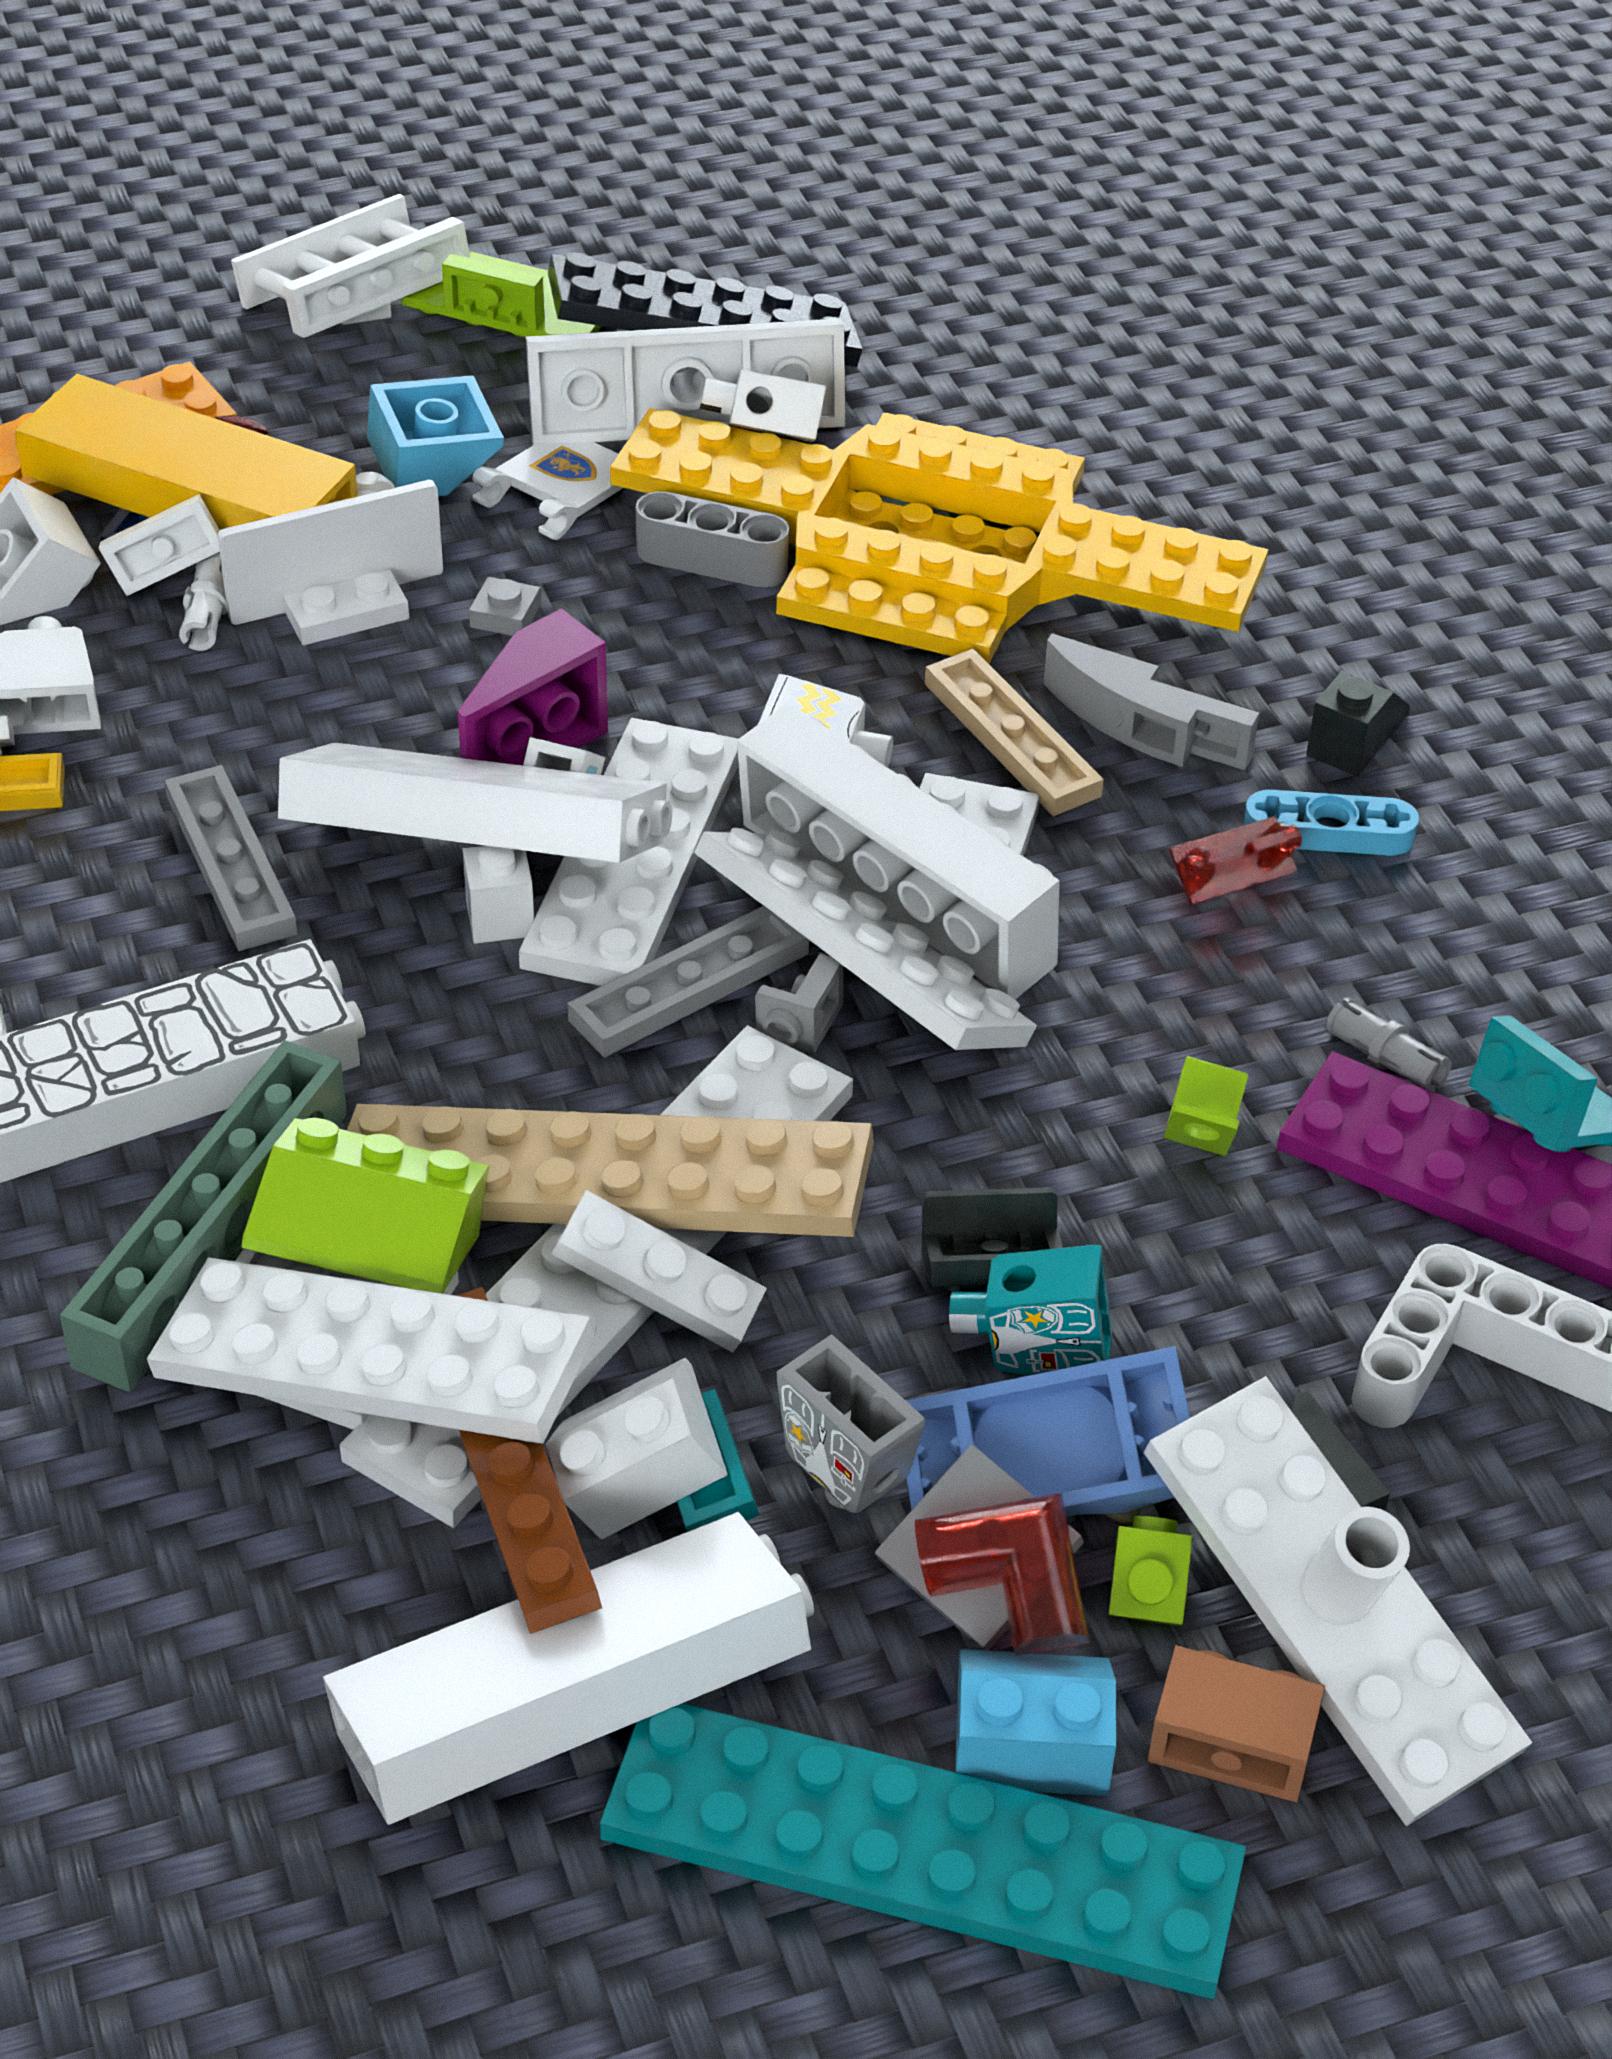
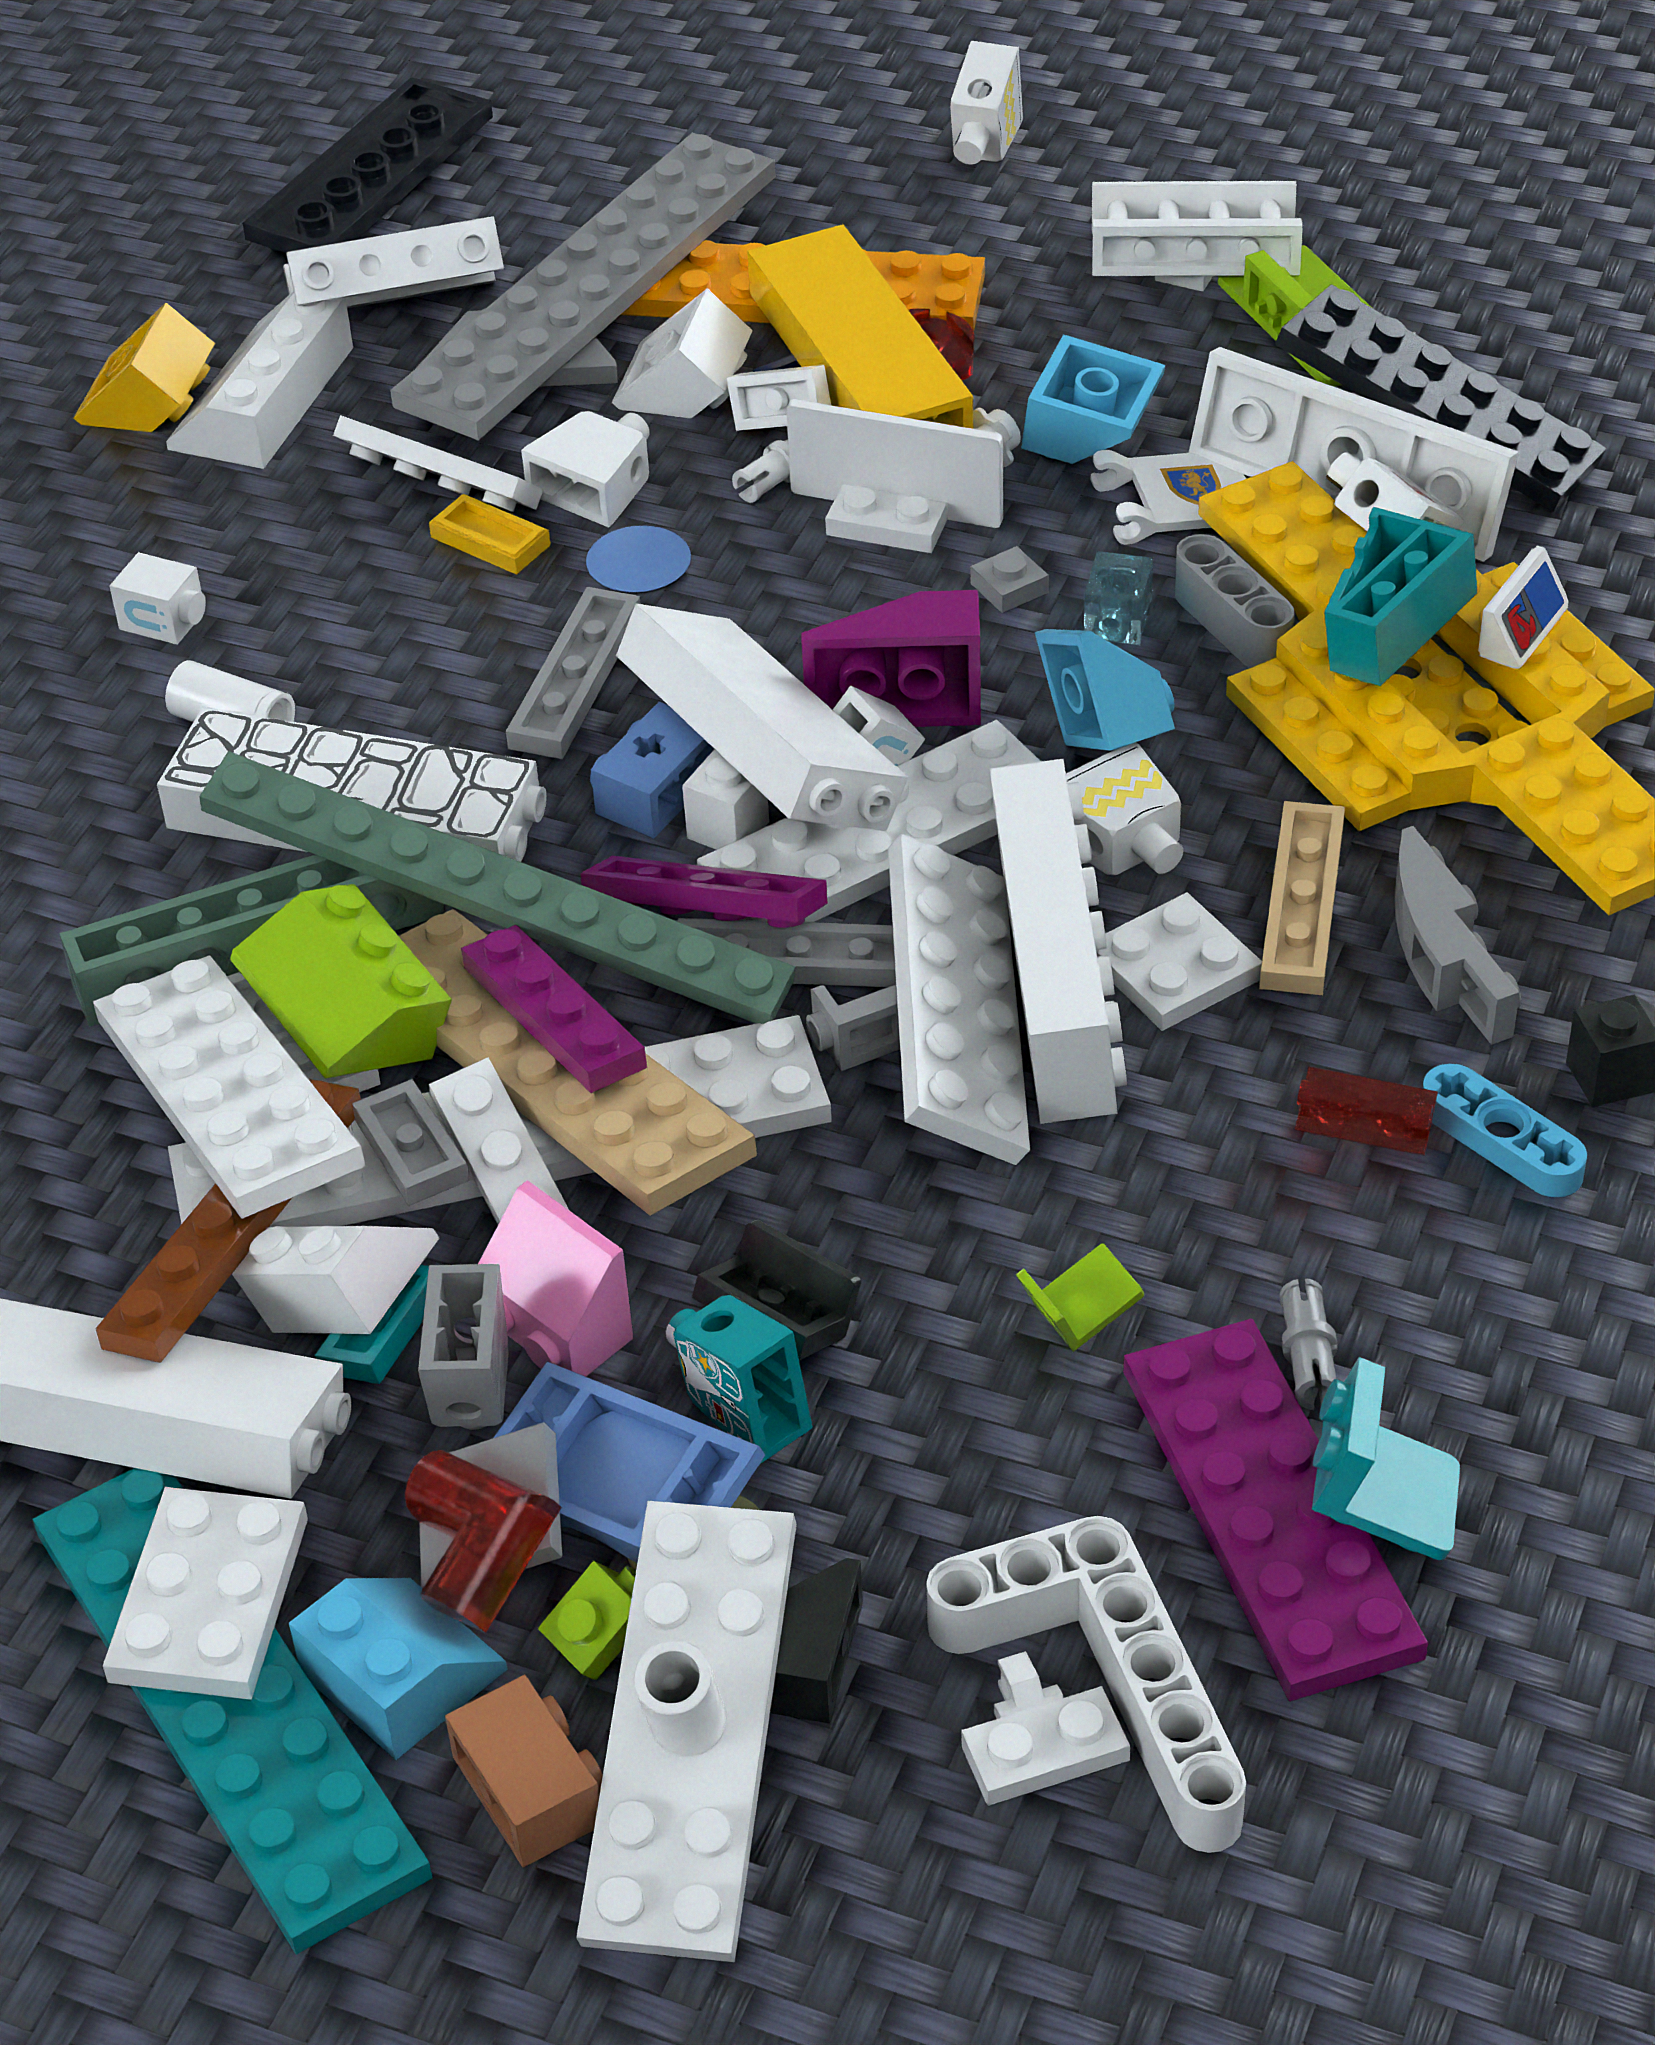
camera: 45 degrees right, 0 degrees up
(62, 254) = (983, 123): none -> white torso
(160, 741) = (638, 559): none -> medium blue sticker
(401, 899) = (645, 771): none -> medium blue brick
(404, 1056) = (498, 889): none -> sand green plate
(583, 1121) = (554, 1008): none -> magenta plate
(586, 960) = (725, 892): none -> magenta plate
(616, 1304) = (410, 1142): none -> light grey plate
(620, 577) = (1118, 597): none -> clear light blue brick
(720, 647) = (1102, 691): none -> medium azure slope
(821, 1298) = (559, 1283): none -> bright pink slope
(843, 1768) = (206, 1593): none -> white plate
(873, 460) = (1397, 594): none -> teal wedge
(966, 438) = (1522, 611): none -> slope
(1534, 1437) = (1041, 1735): none -> white hinge

